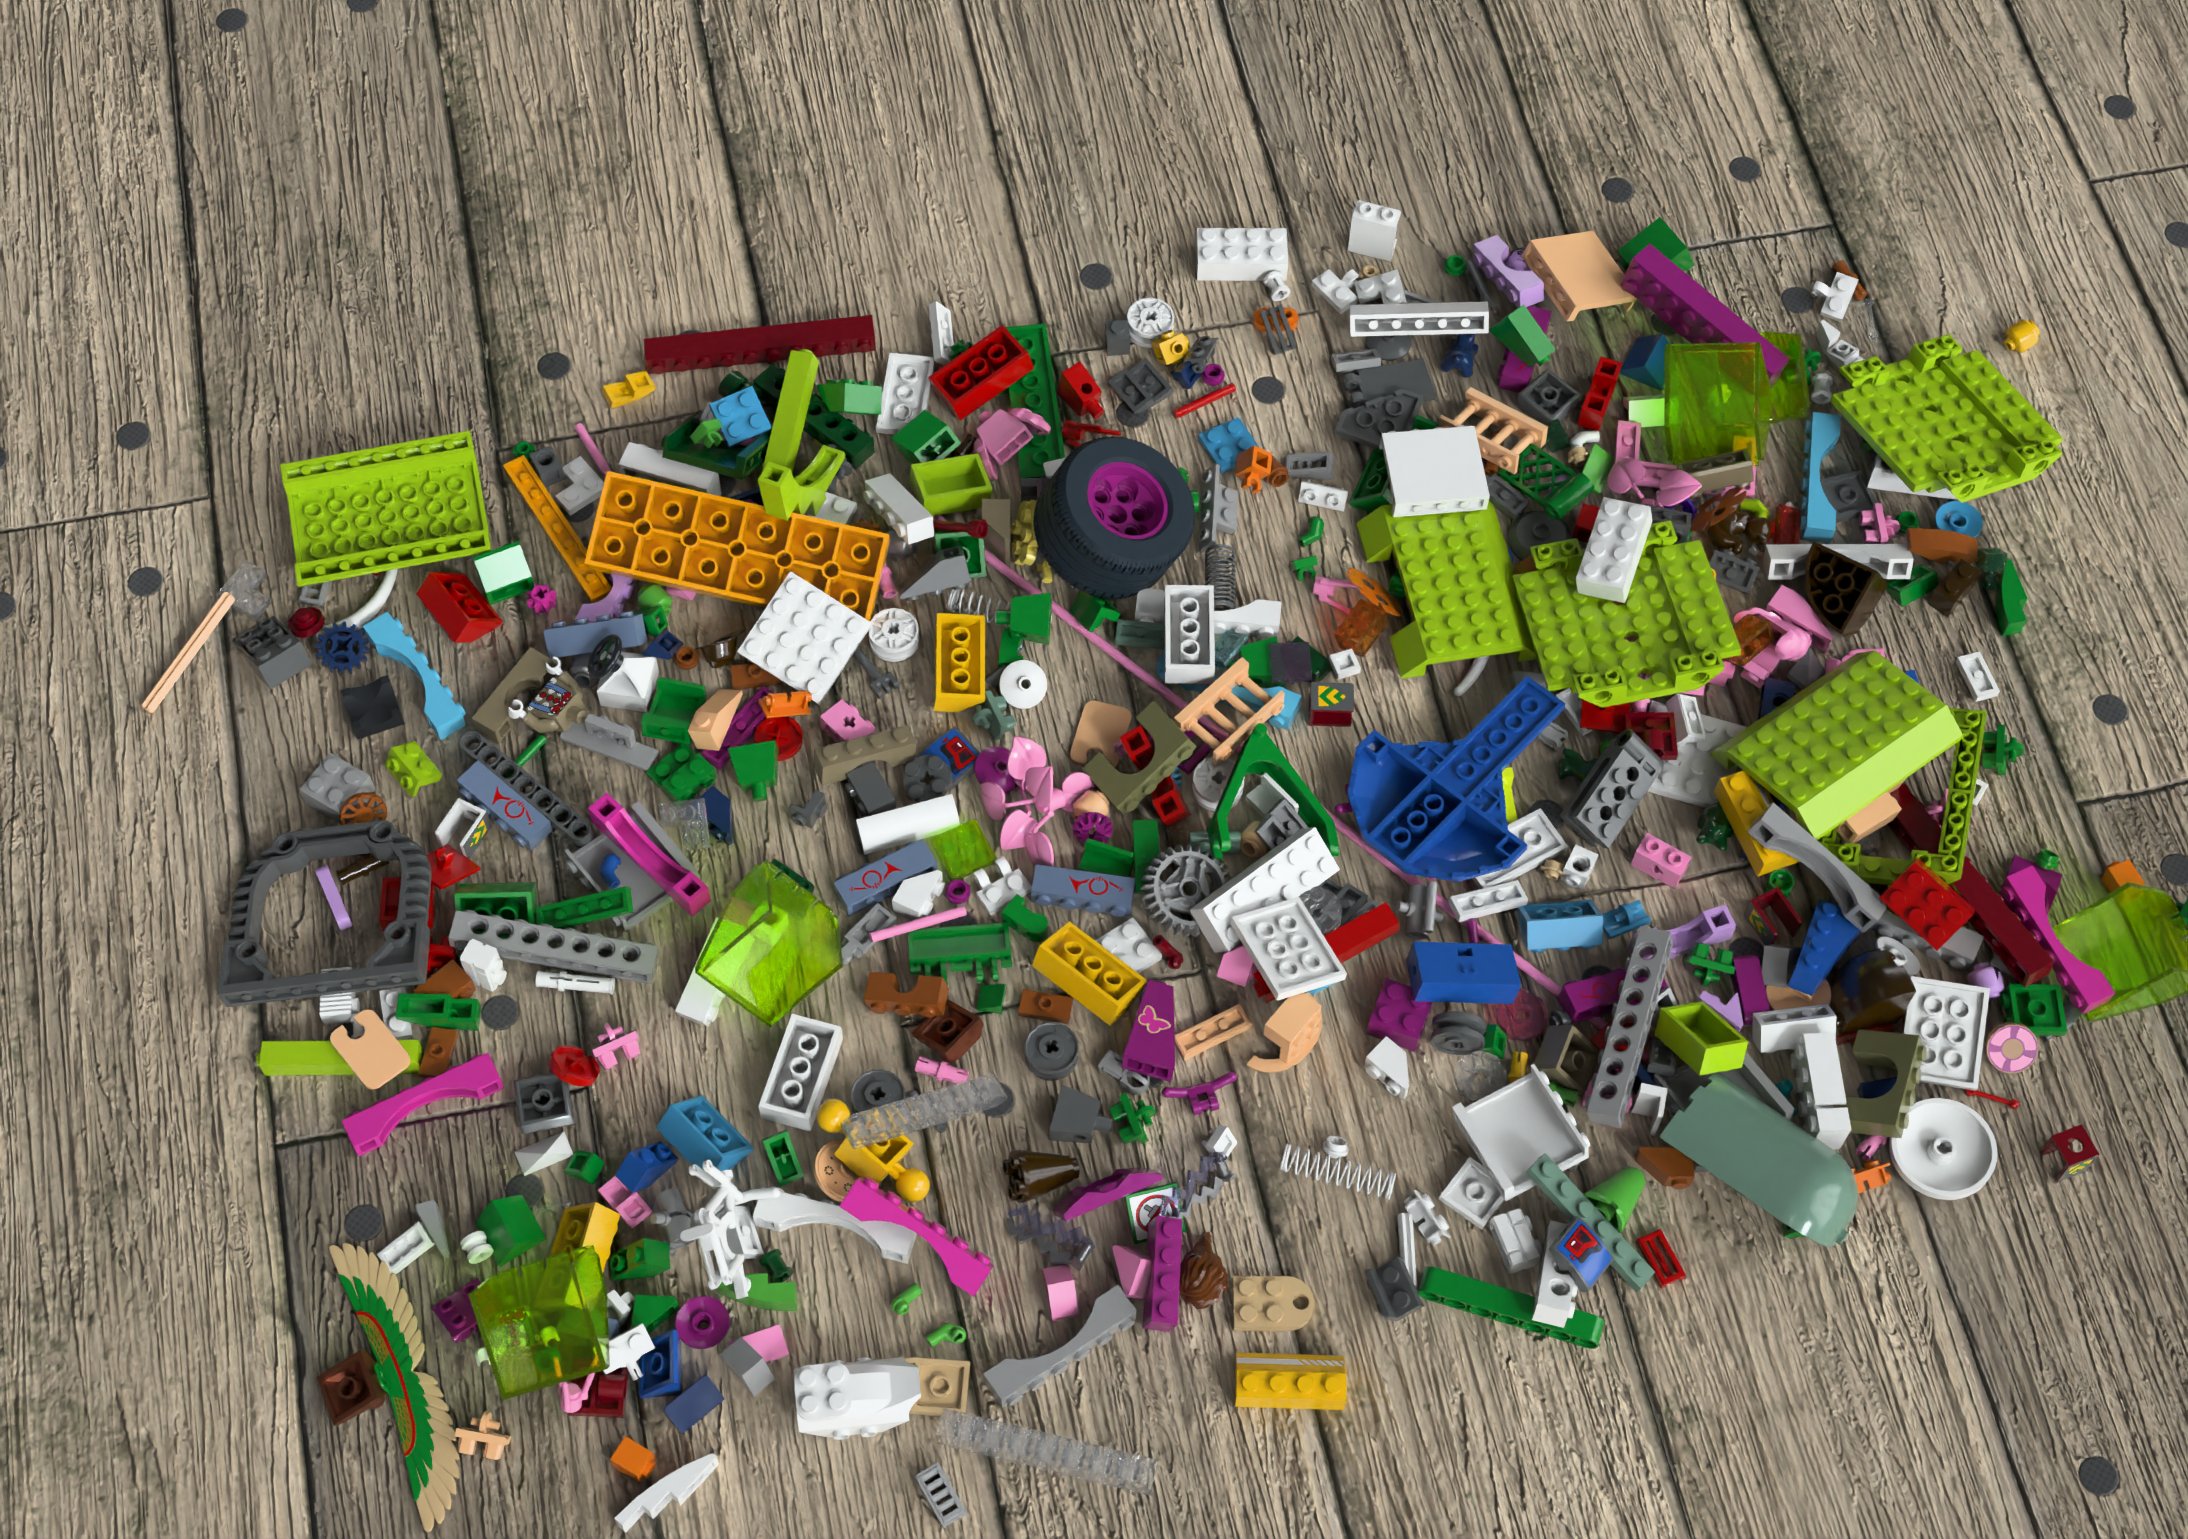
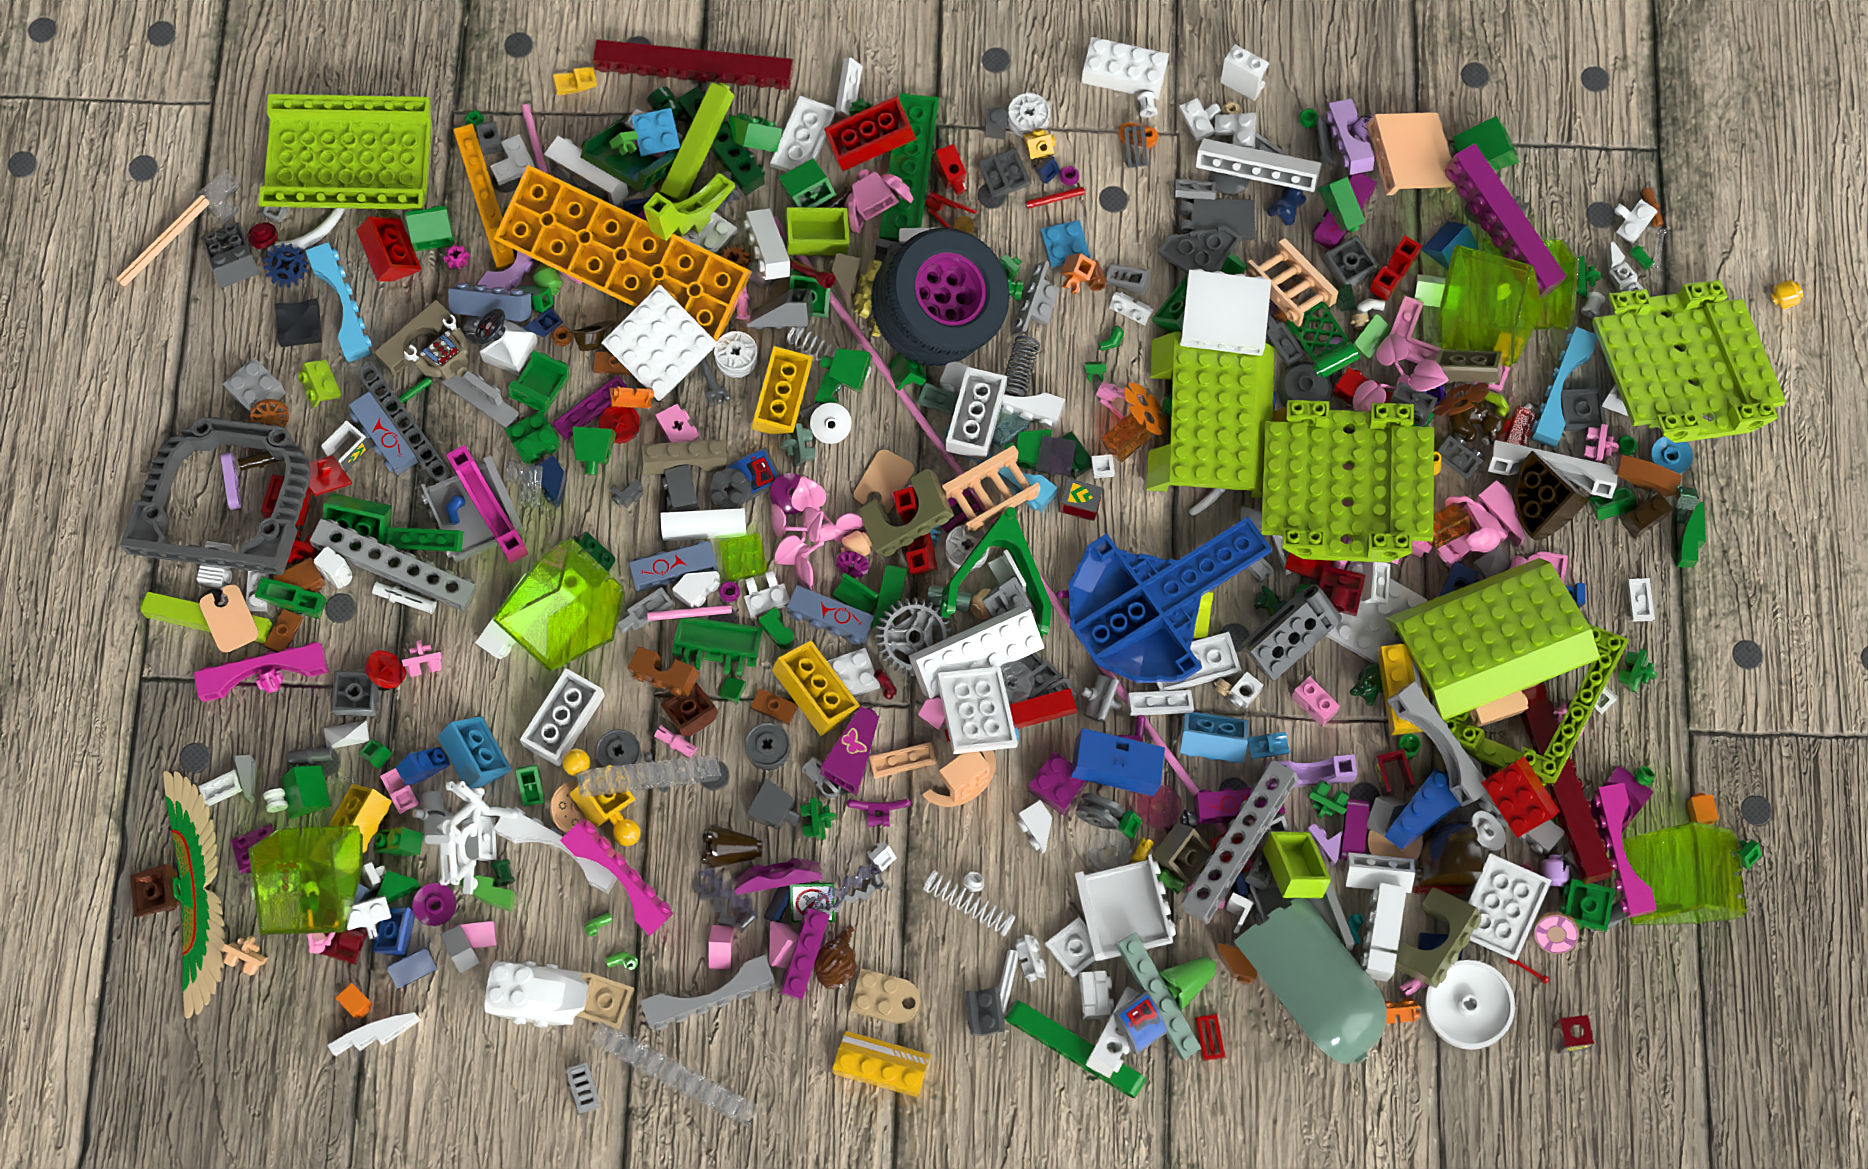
camera: 15 degrees right, 10 degrees up
(435, 1109) = (269, 679): none -> dark pink gear
(507, 1186) = (311, 755): none -> dark grey pin
(713, 719) = (570, 395): light nougat slope -> none
(1114, 1223) = (778, 904): none -> dark blue slope
(1201, 353) = (1063, 154): dark grey hinge -> none
(1614, 550) = (1354, 422): white brick -> none
(1855, 331) = (1641, 257): none -> green pin

